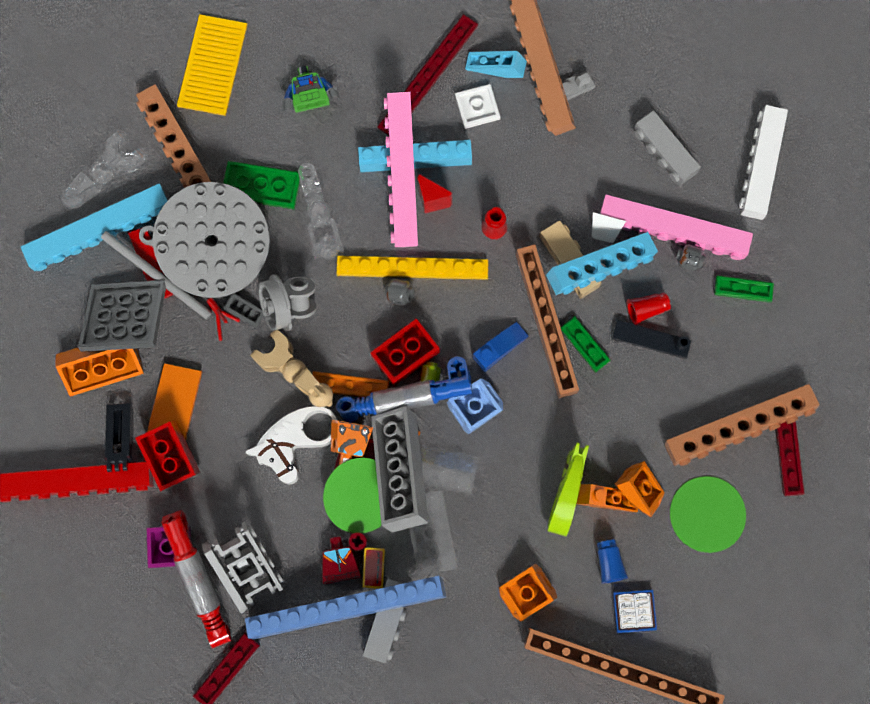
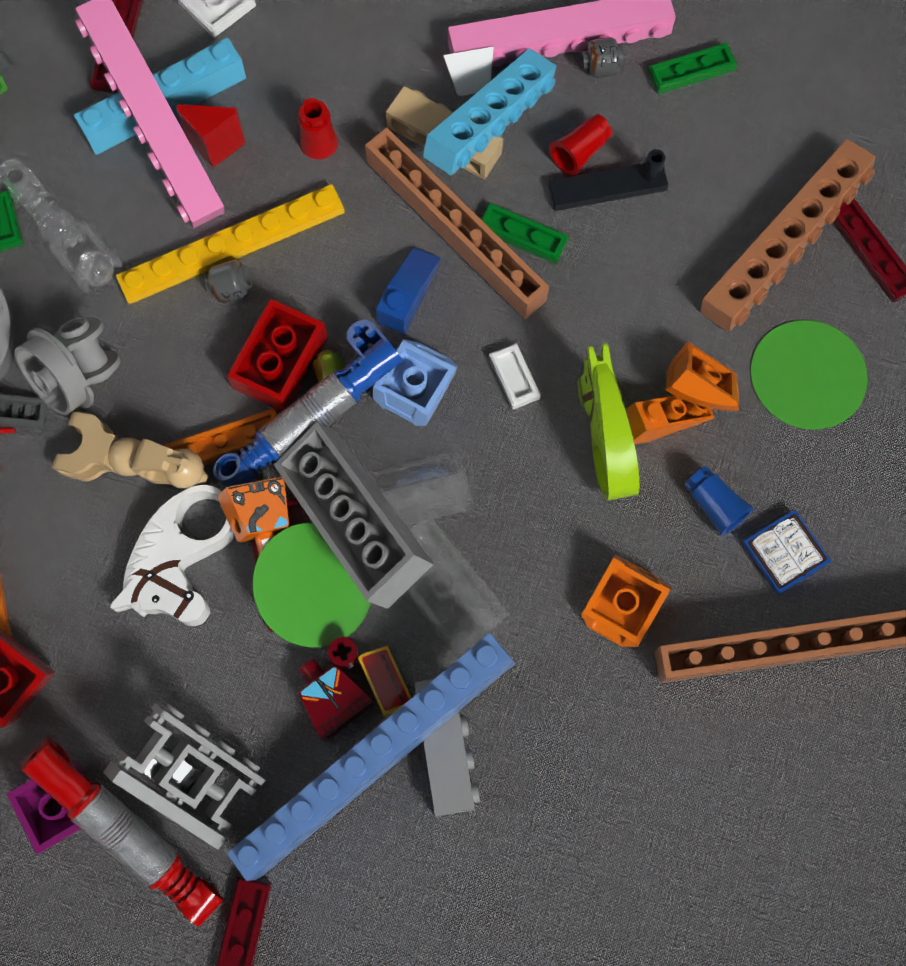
camera: 30 degrees left, 5 degrees down
(534, 429) = (514, 376): none -> white tile

